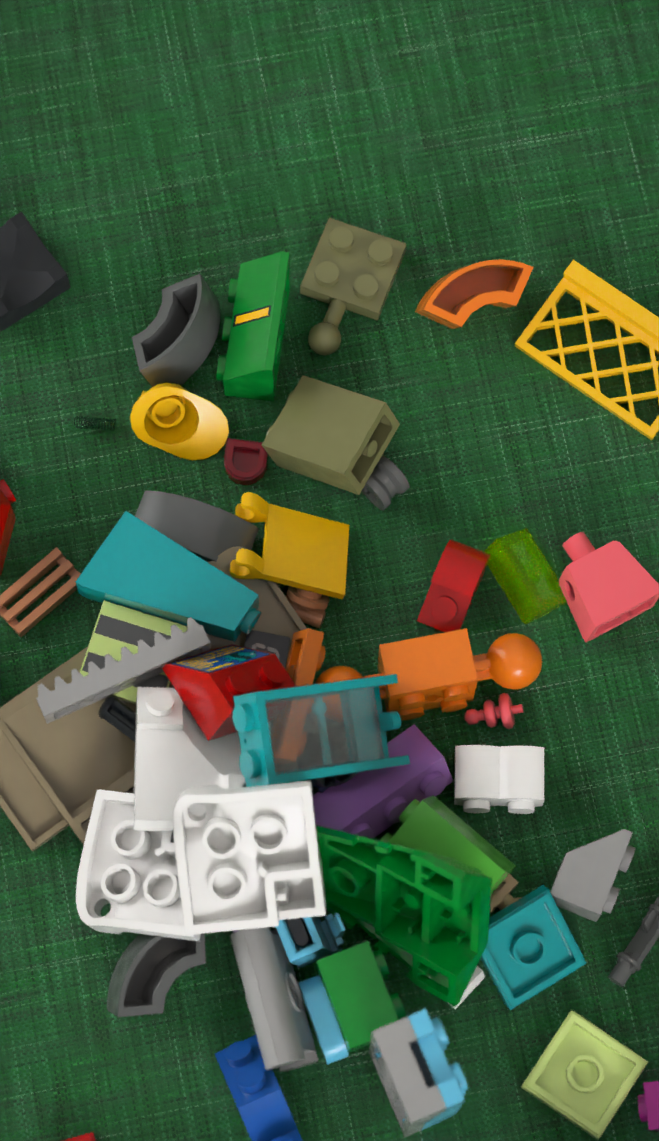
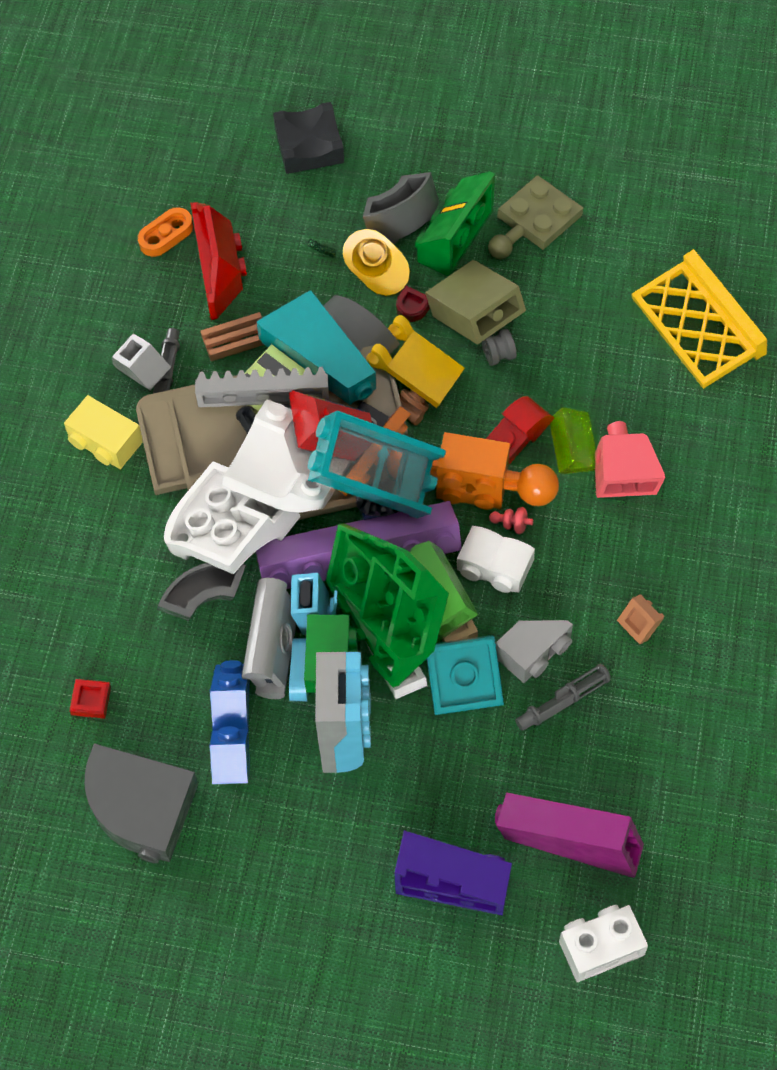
camera: 25 degrees right, 10 degrees down
(248, 857) = (290, 523): white slope -> none
(471, 287) = (615, 245): orange brick -> none
(584, 1074) = (469, 779): yellowish green tile -> none

